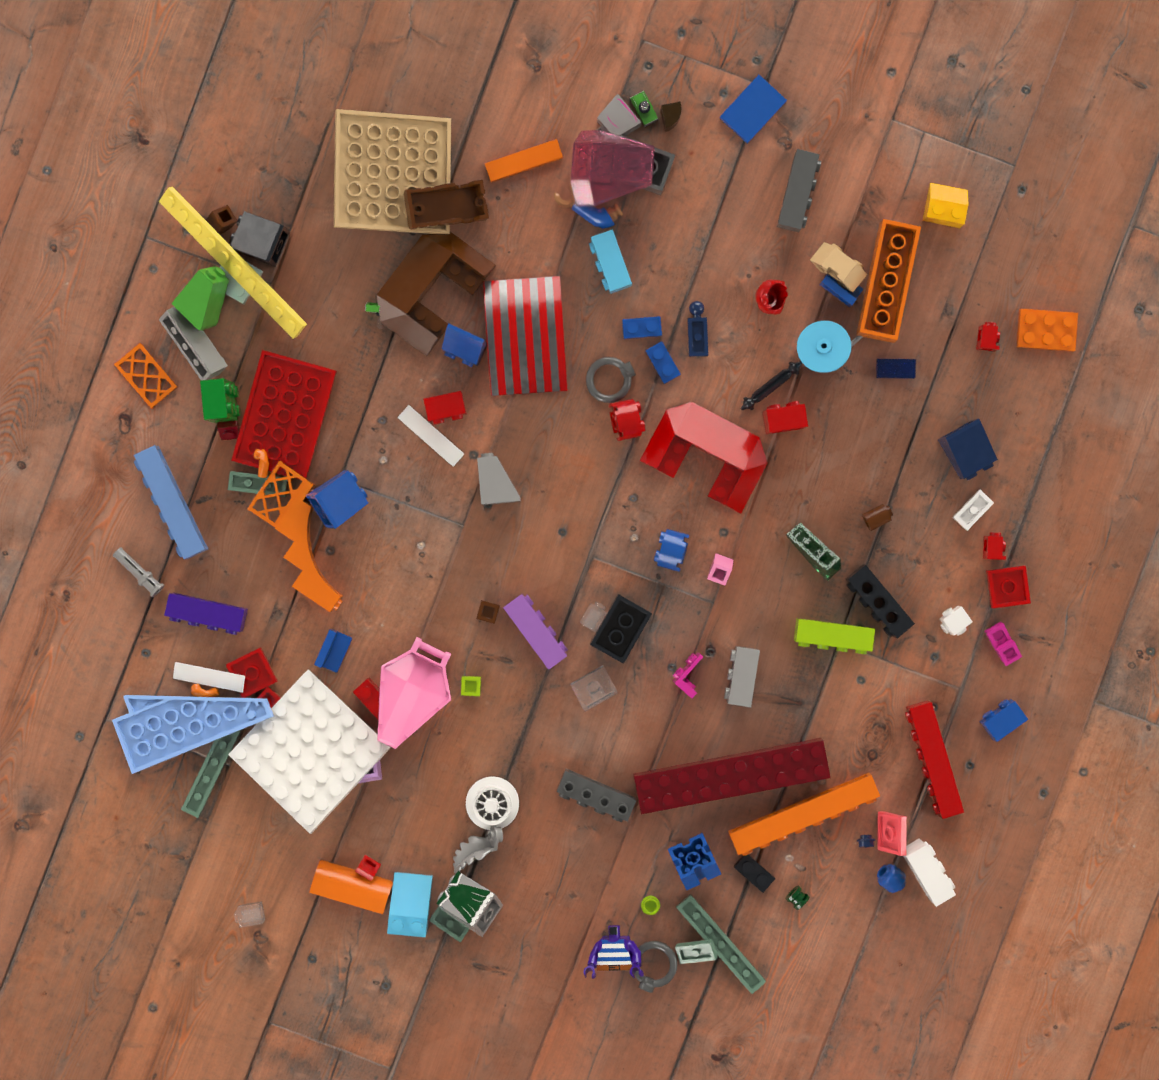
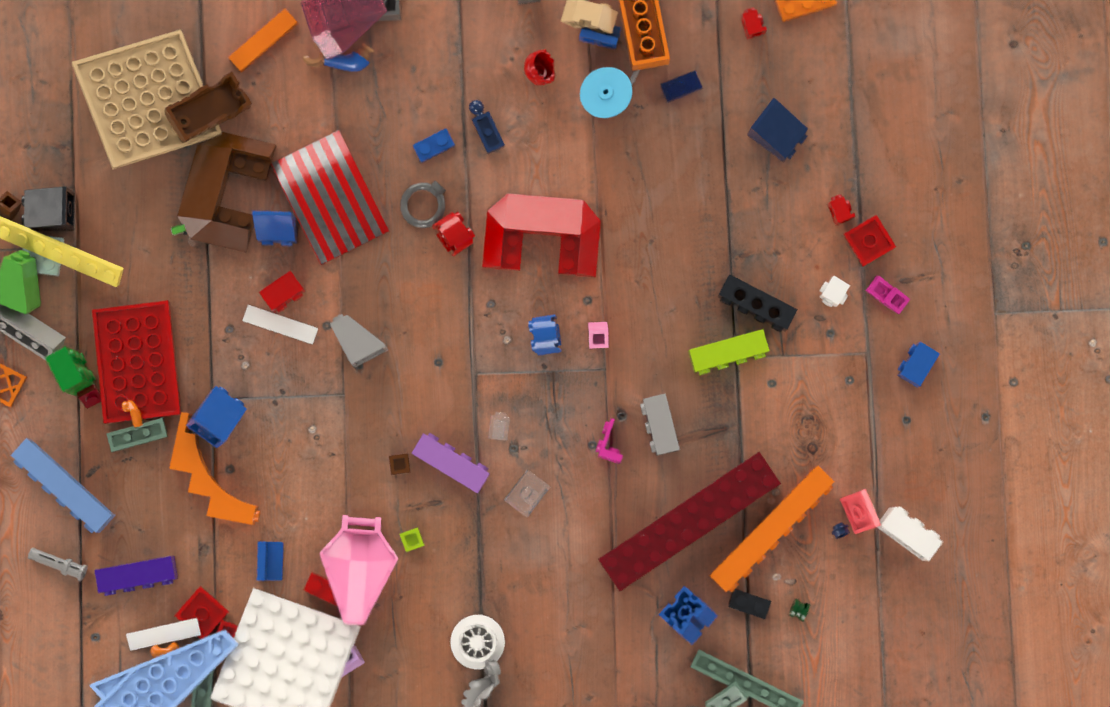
camera: 25 degrees left, 5 degrees down
(261, 495) = (148, 423): orange window -> none
(597, 795) = (571, 592): dark grey brick -> none
(610, 262) = (379, 98): medium azure brick -> none
(620, 628) = (528, 427): black brick -> none
(650, 905) = (665, 675): lime plate -> none
(663, 362) = (466, 169): blue plate -> none
(771, 385) = (574, 148): black wheel -> none
(785, 419) = (598, 172): red brick -> none
(815, 551) = (678, 282): clear green slope -> none
(877, 516) = (722, 227): reddish brown brick -> none
(891, 878) = (878, 554): blue head -> none
(935, 759) = (871, 427): red brick -> none
(973, 510) = (806, 184): white plate -> none

